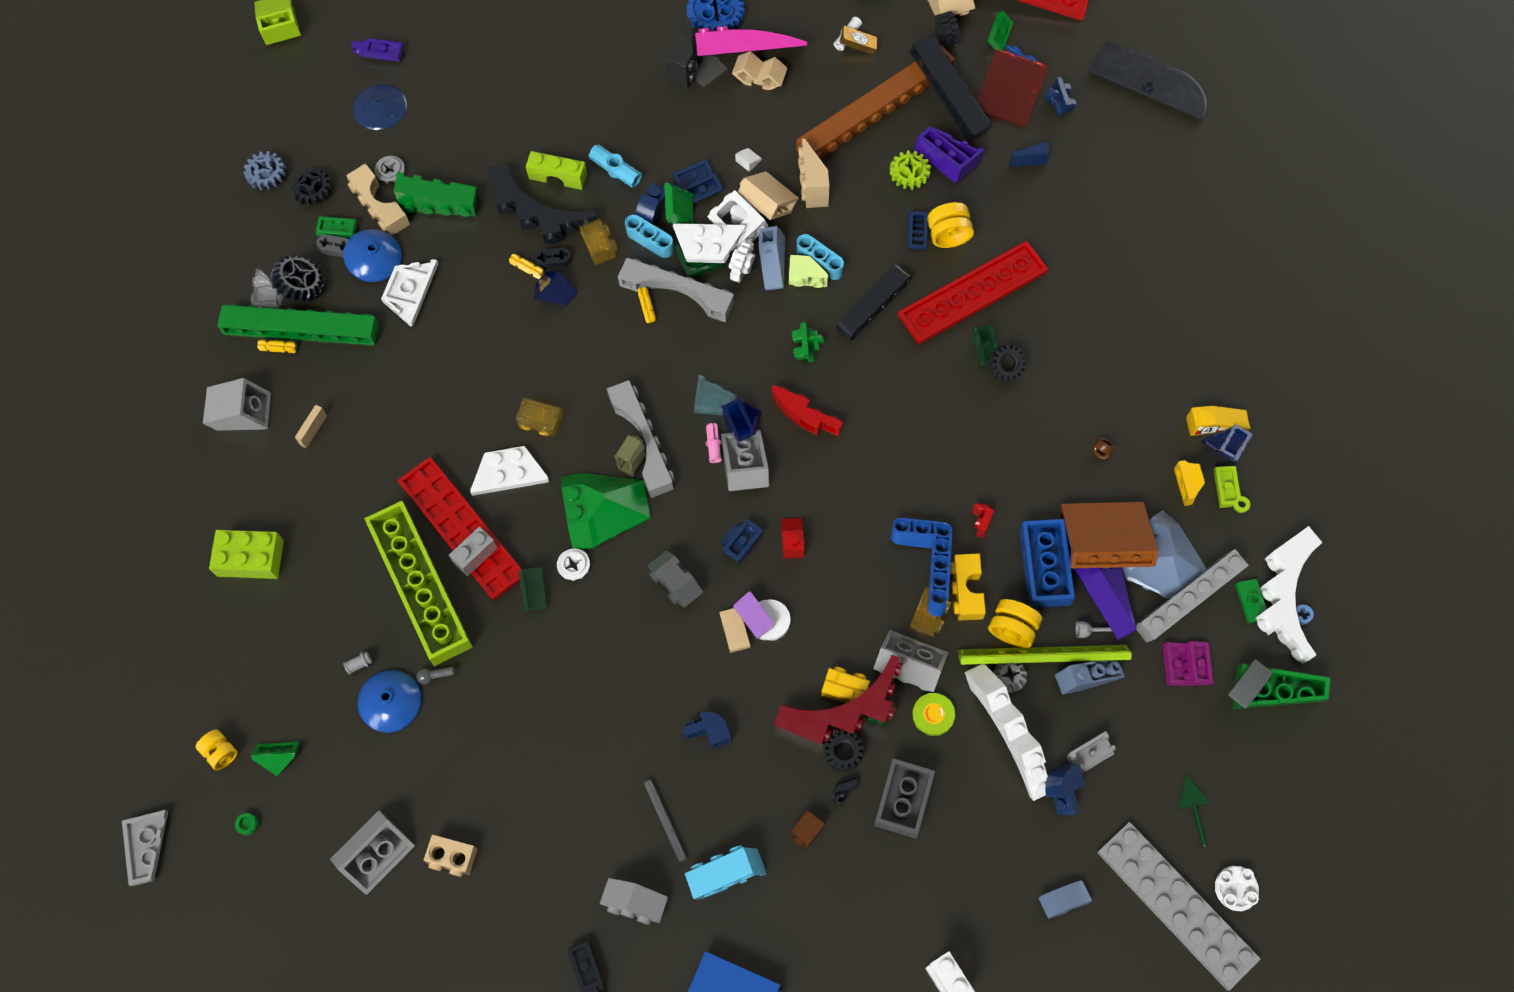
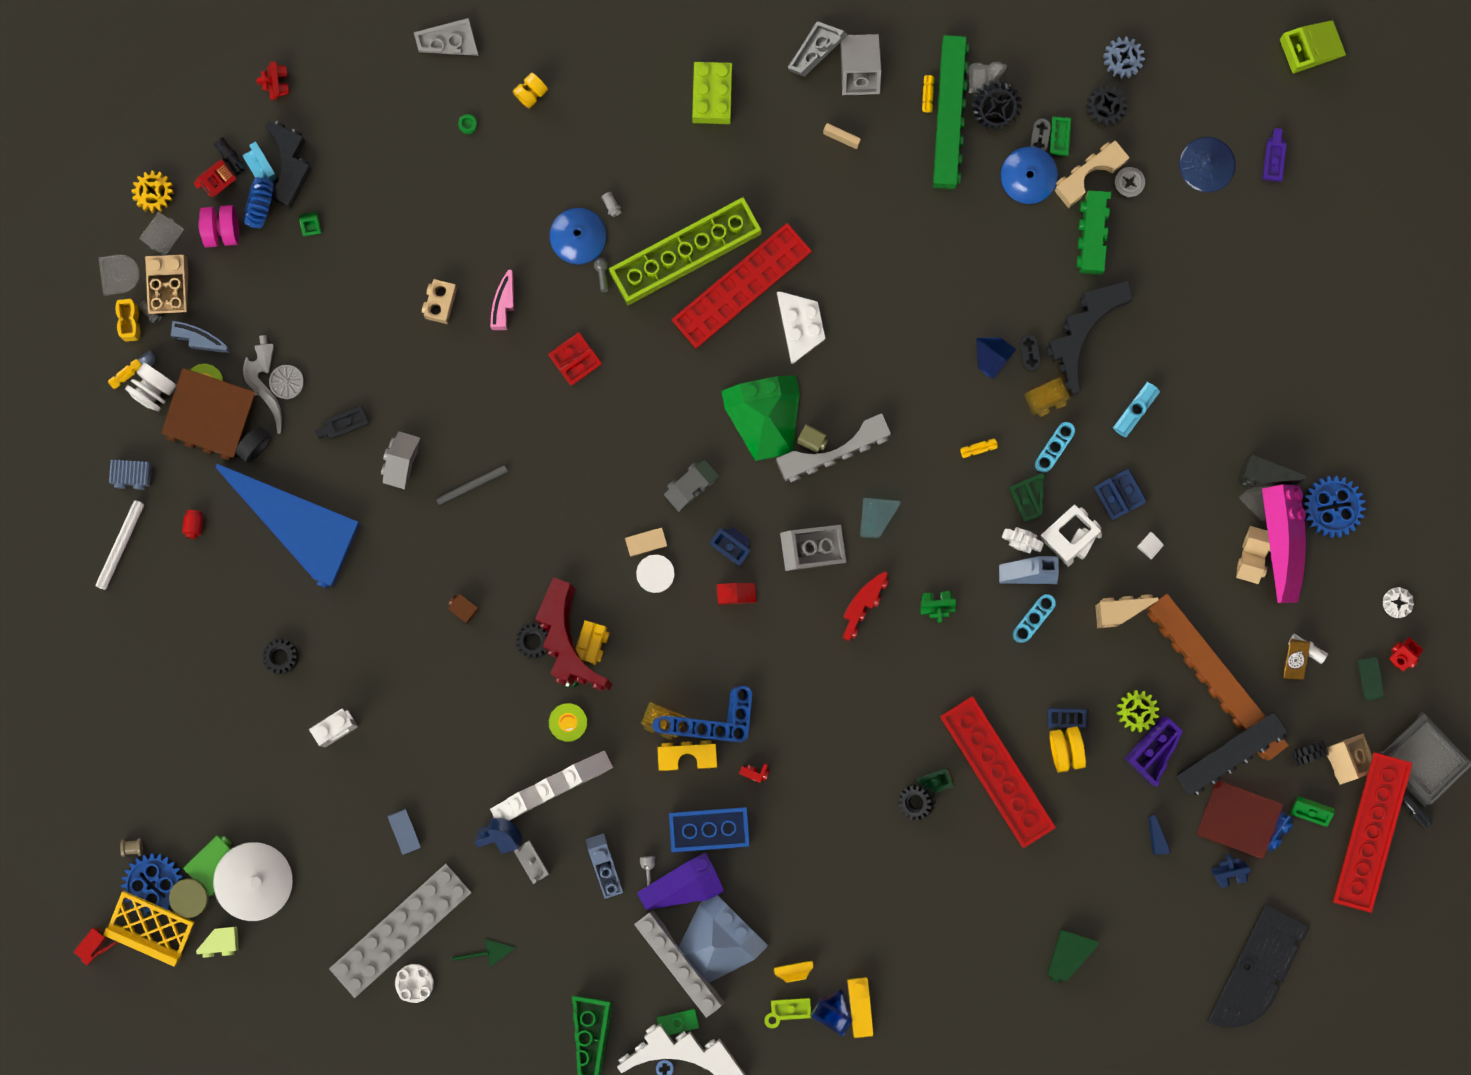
camera: 85 degrees right, 15 degrees up
(212, 449) = (816, 46): none -> wing
(275, 755) = (527, 141): green slope -> none
(372, 852) = (442, 234): light grey slope -> none
(408, 289) = (991, 213): white wing -> none
(458, 782) = (503, 302): none -> bright pink slope
(473, 551) = (713, 299): light grey brick -> none
(526, 266) = (1020, 327): yellow axle -> none
(527, 704) = (574, 358): none -> red slope
(532, 589) = (680, 355): clear green panel -> none
(539, 417) = (854, 351): clear yellow brick -> none
(570, 171) = (1129, 350): lime arch -> none
(577, 556) = (708, 382): white gear -> none
(650, 204) = (1087, 447): dark blue brick -> none
(678, 205) = (1086, 475): green slope -> none
(708, 241) = (1044, 505): white wing -> none
(712, 726) = (553, 525): dark blue brick -> none
(713, 443) = (831, 517): bright pink axle -> none
(714, 301) = (1008, 440): light grey arch -> none
(724, 871) = (425, 539): medium azure wedge -> none
(741, 419) = (852, 544): clear blue slope -> none
(753, 615) = (656, 558): medium lavender slope -> none
(767, 195) = (1100, 564): tan brick -> none
(806, 272) = (1017, 603): yellowish green slope -> none
(841, 790) = (499, 639): black arm -> none
(874, 302) = (984, 673): black beam -> none
(904, 798) = (489, 693): dark grey brick -> none
(920, 660) = (618, 707): light grey slope -> none
(1015, 623) = (647, 796): yellow wheel -> none
(1018, 680) = (612, 798): light grey gear -> none
(1044, 654) = (622, 824): lime tile -> none
(1104, 446) = (830, 893): reddish brown tile -> none
(1109, 535) = (734, 887): dark orange panel -> none
(1151, 232) = (1069, 955): none -> dark green slope
(1187, 664) = (616, 957): magenta slope -> none
(1250, 683) = (589, 1006): dark grey slope -> none

